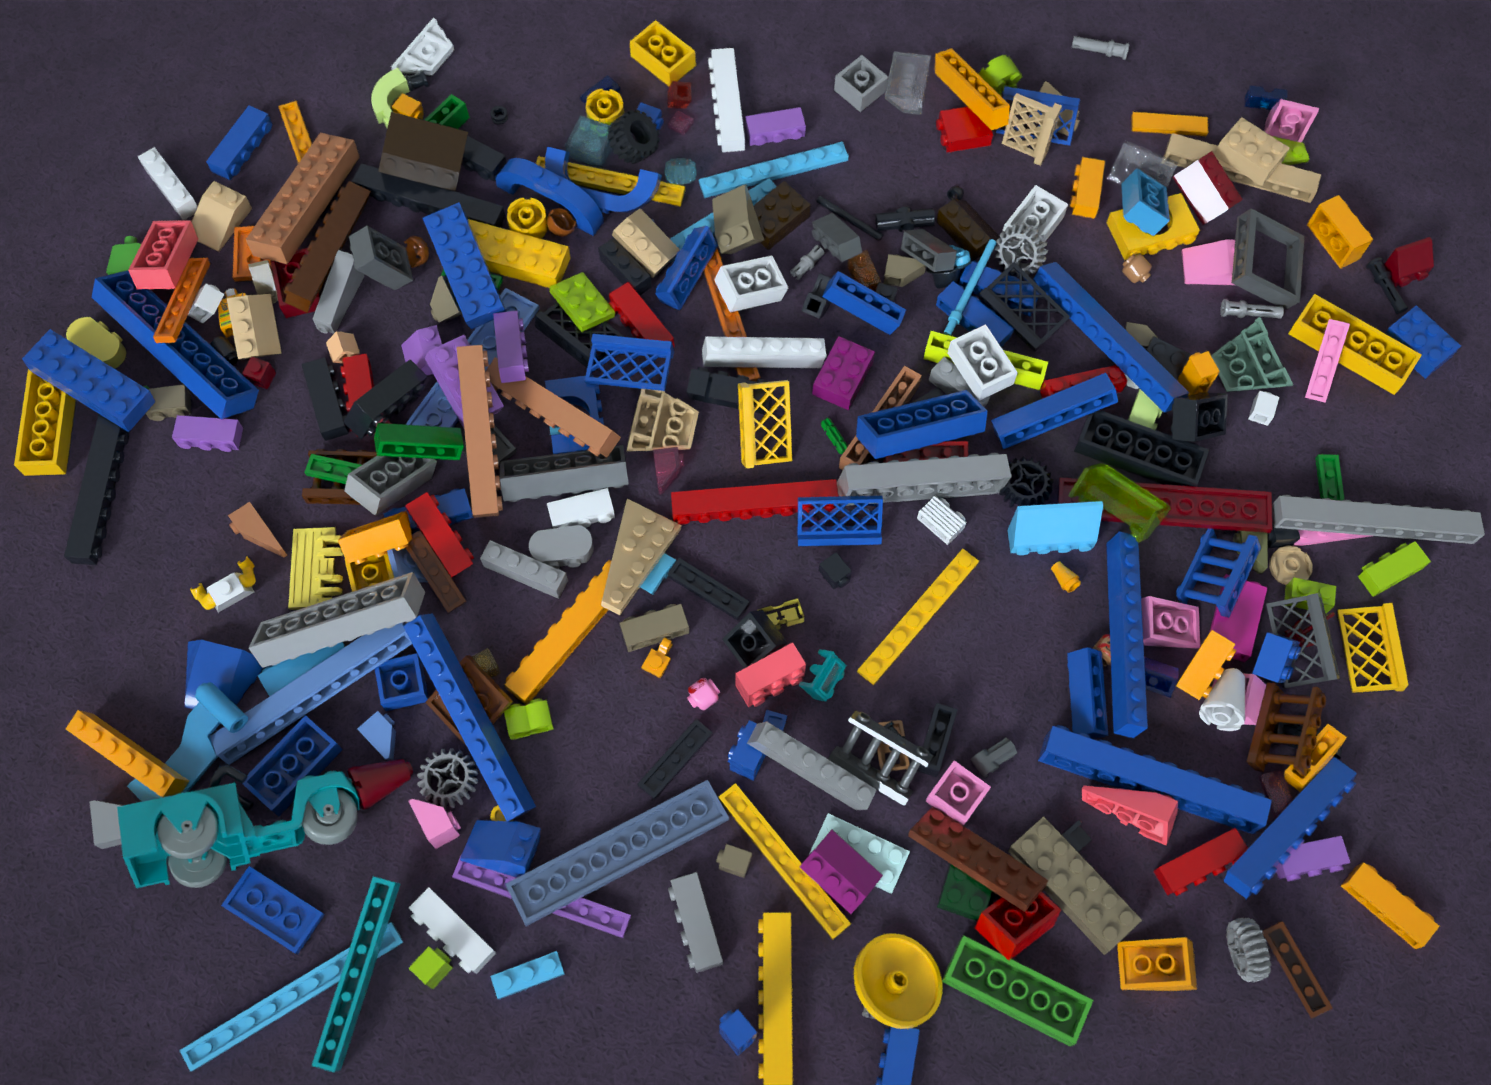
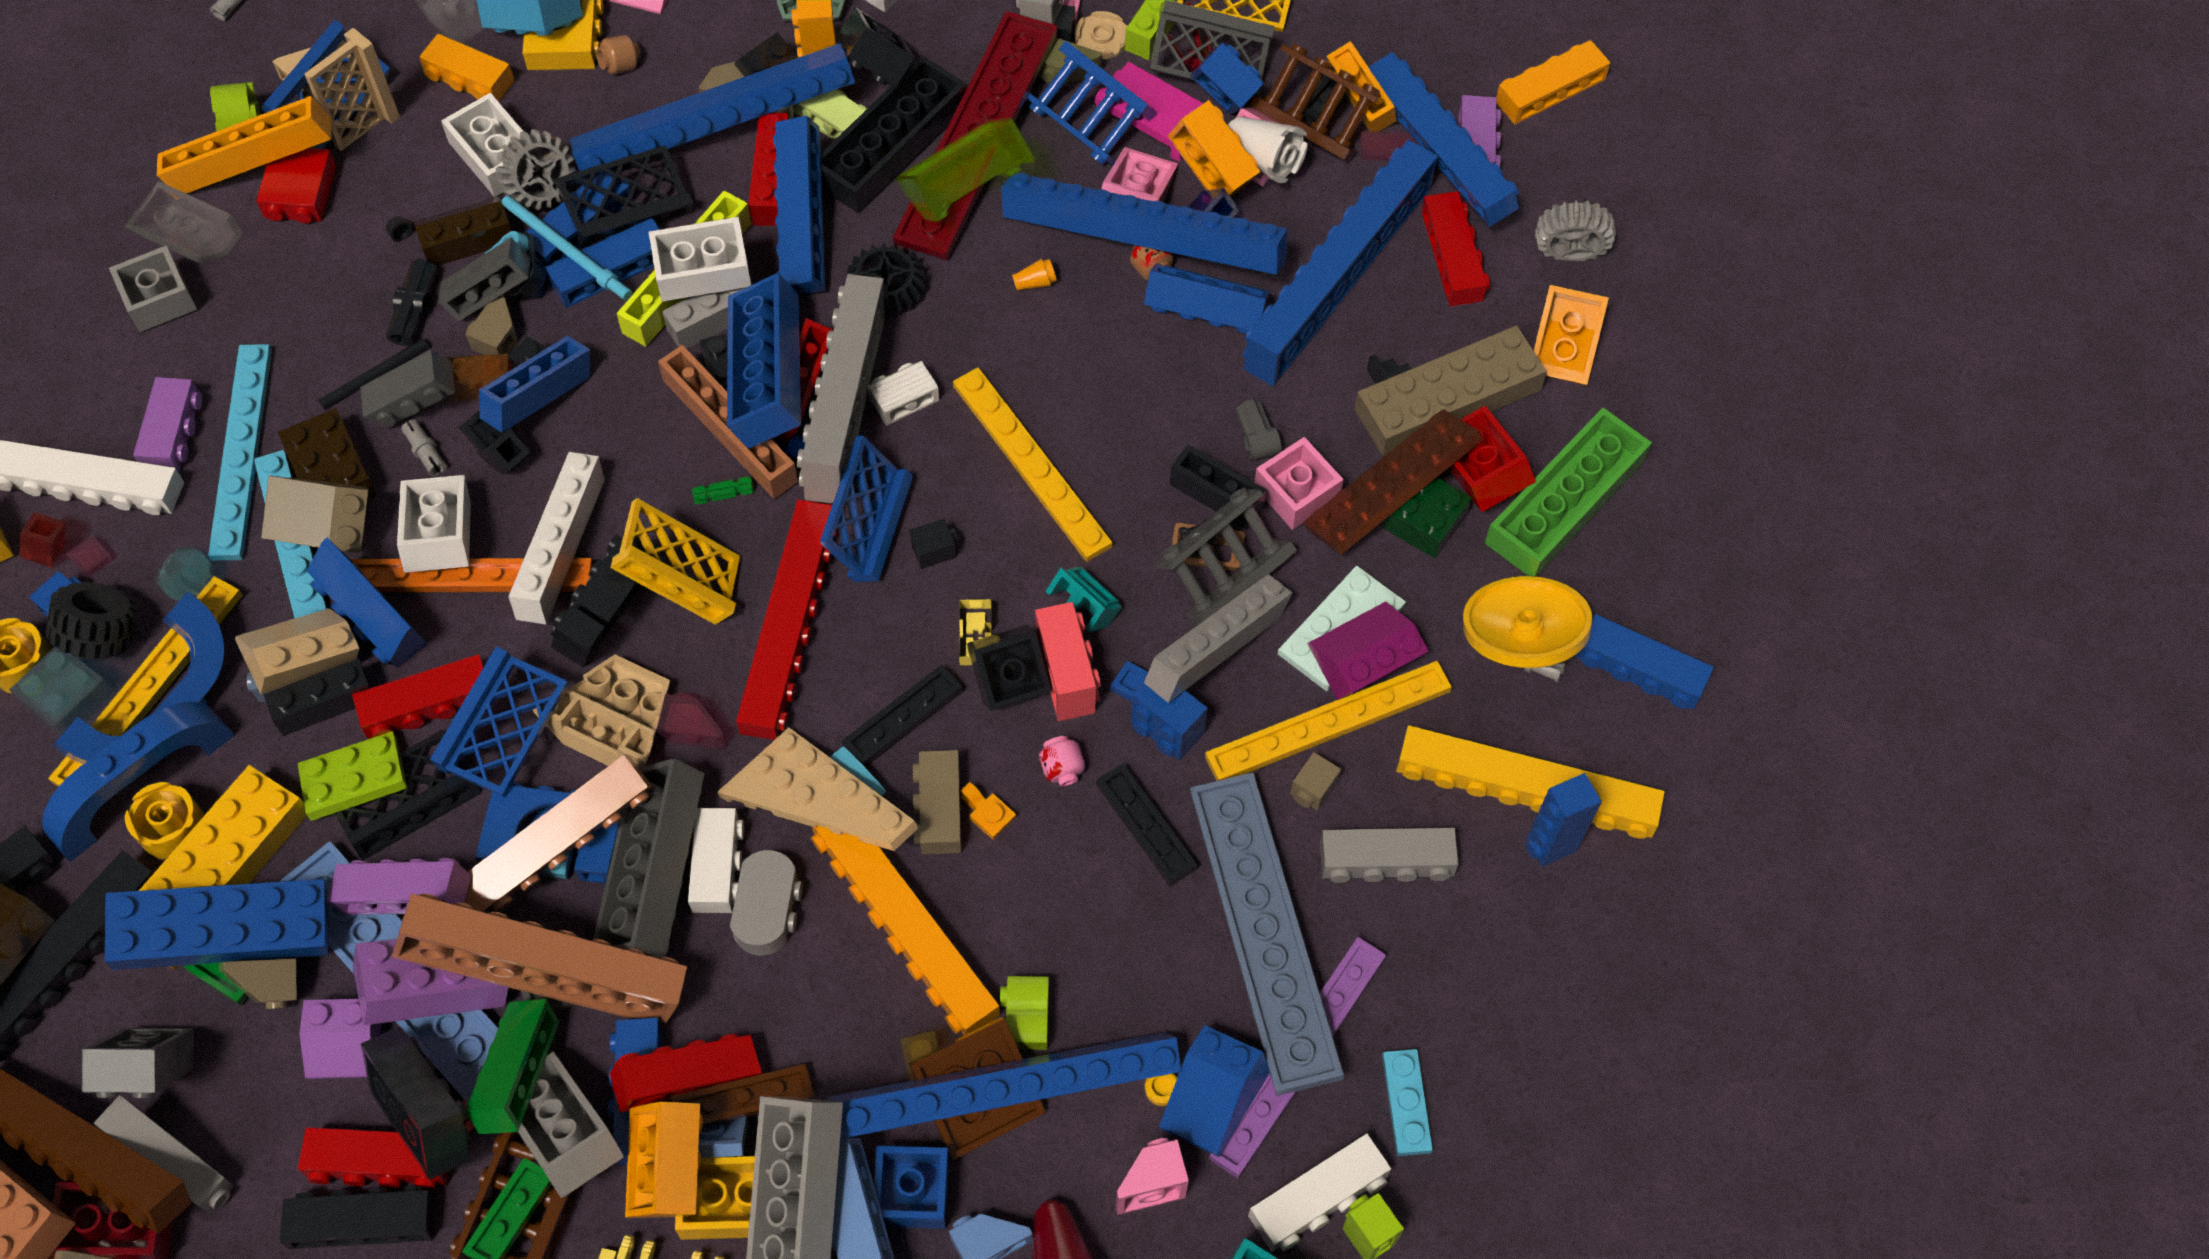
camera: 75 degrees left, 5 degrees down
(342, 346) = (273, 1169): light nougat brick -> none
(415, 247) = (136, 1002): dark orange hair -> none
(451, 769) = (1095, 1161): light grey gear -> none
(524, 569) = (783, 964): light grey brick -> none
(560, 222) = (193, 773): dark orange hair -> none
(843, 373) = (630, 447): magenta brick -> none
(1055, 527) = (970, 260): medium azure slope -> none
(1145, 810) = (1383, 278): coral wedge -> none
(1297, 969) = (1612, 191): reddish brown brick -> none

